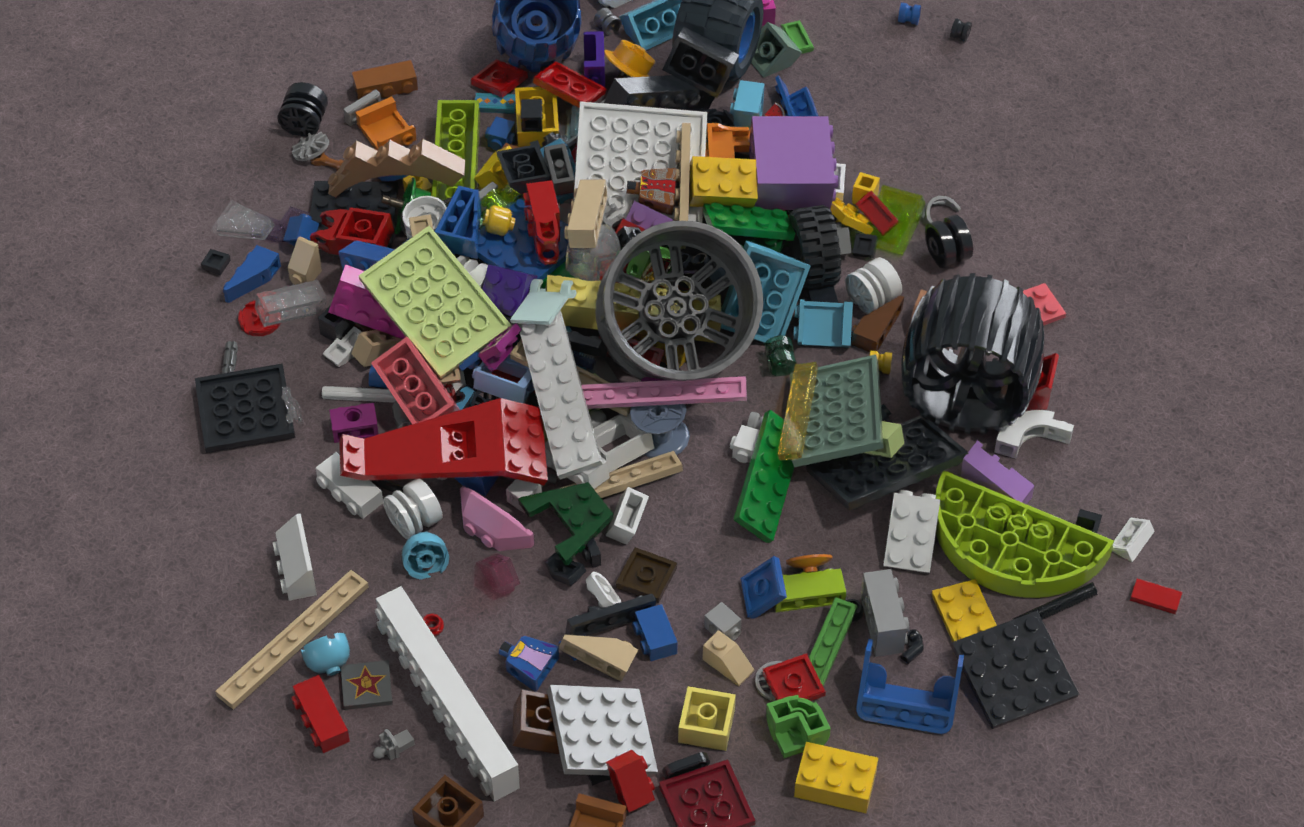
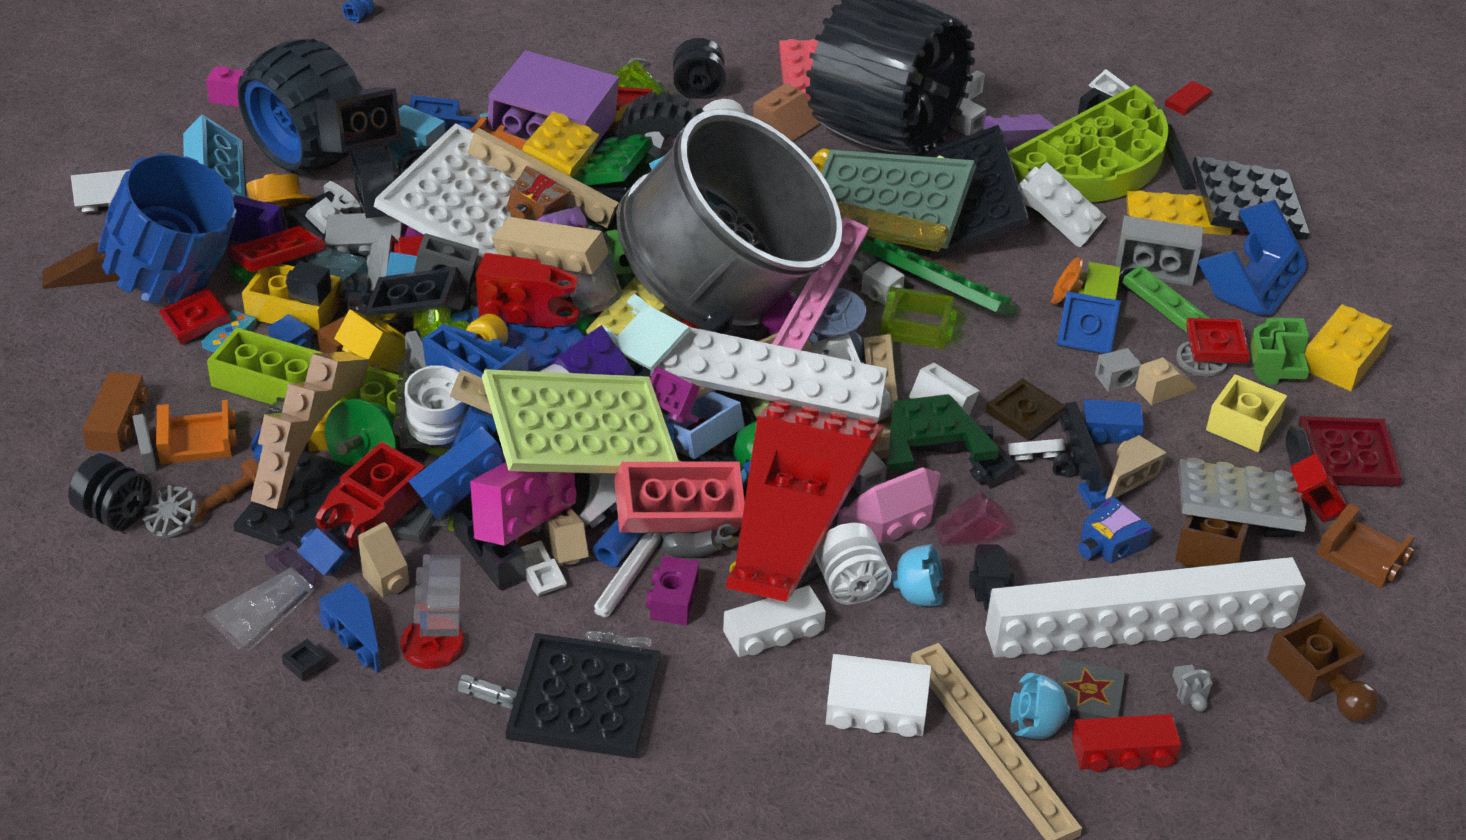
camera: 70 degrees left, 10 degrees down
(446, 595) = (989, 572): none -> black hinge
(712, 460) = (918, 332): none -> clear neon green window

